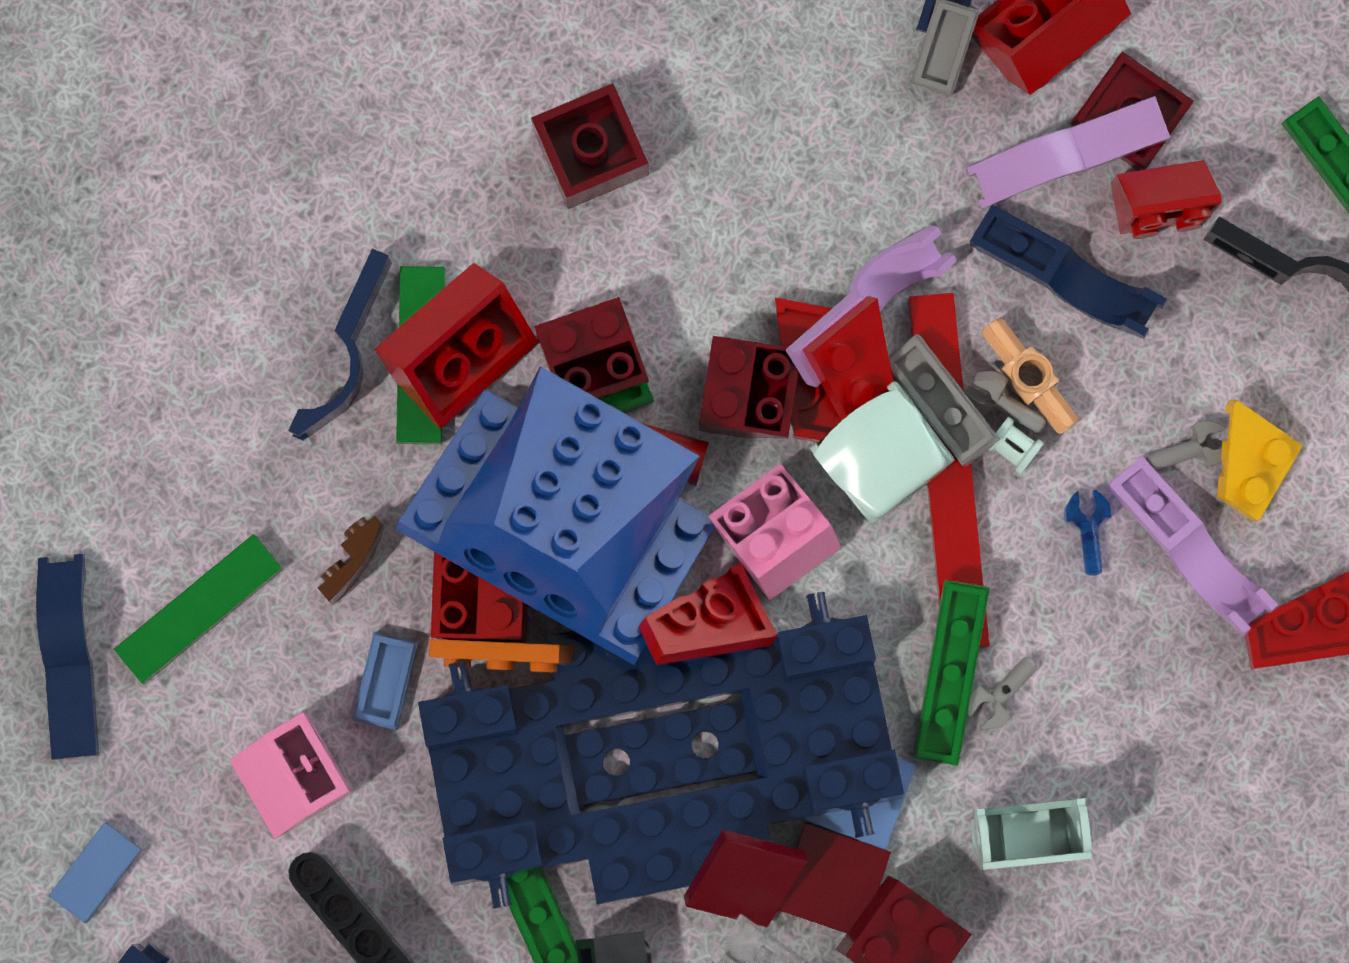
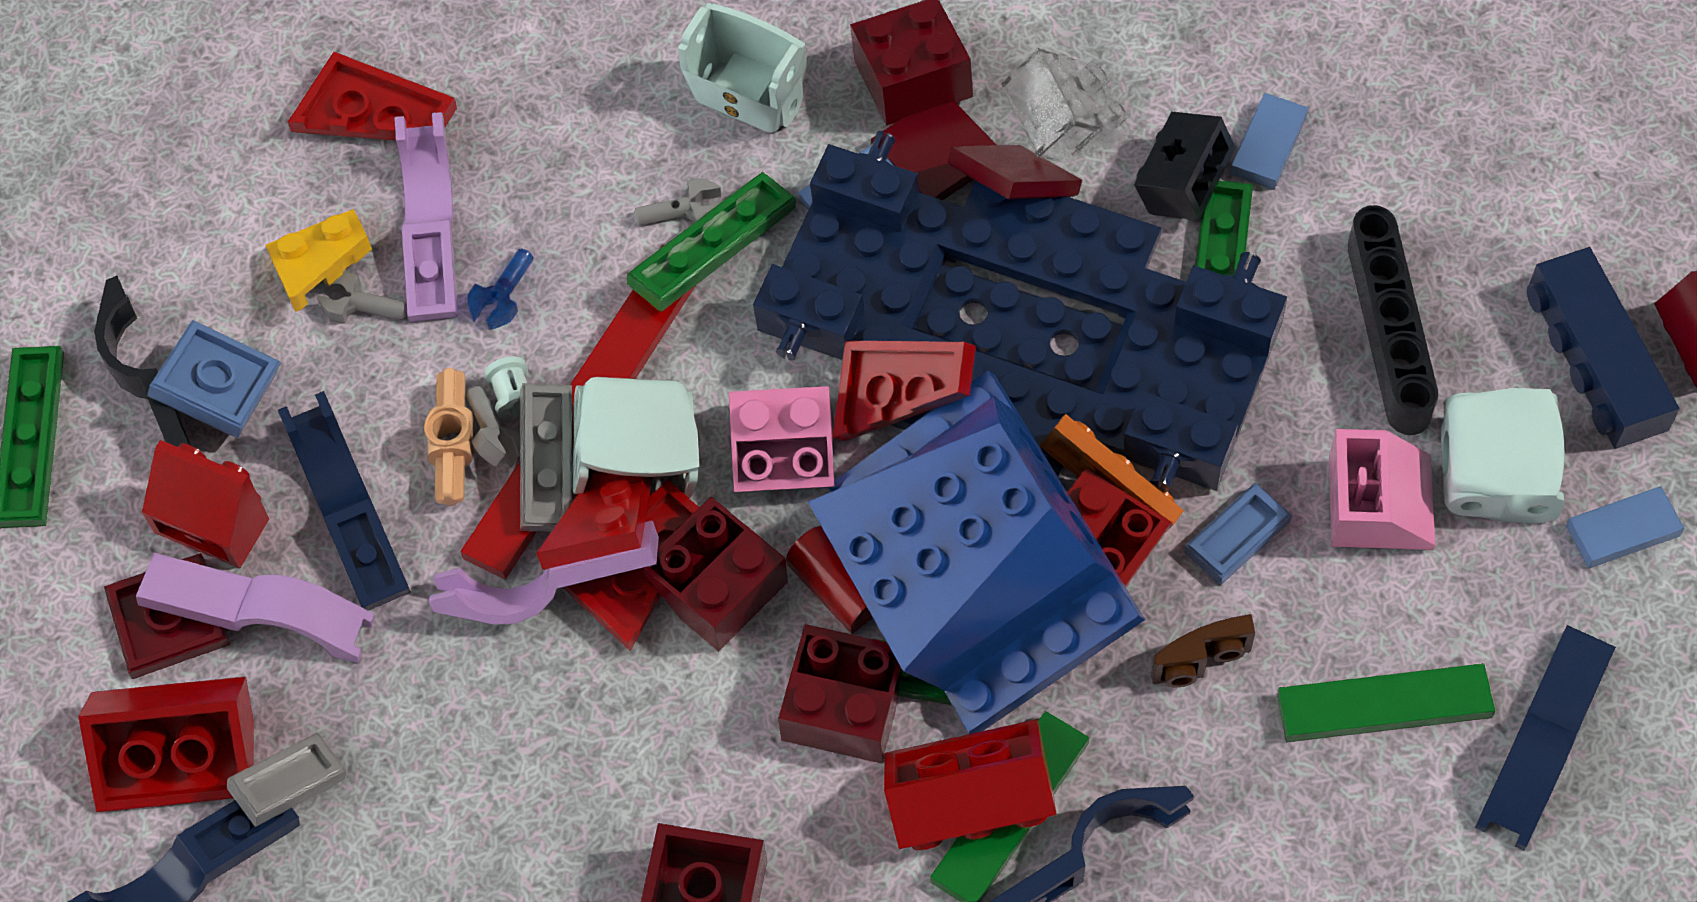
camera: 140 degrees left, 20 degrees down
(216, 867) = (1503, 455): none -> light aqua piece
(1242, 302) = (214, 378): none -> medium blue tile

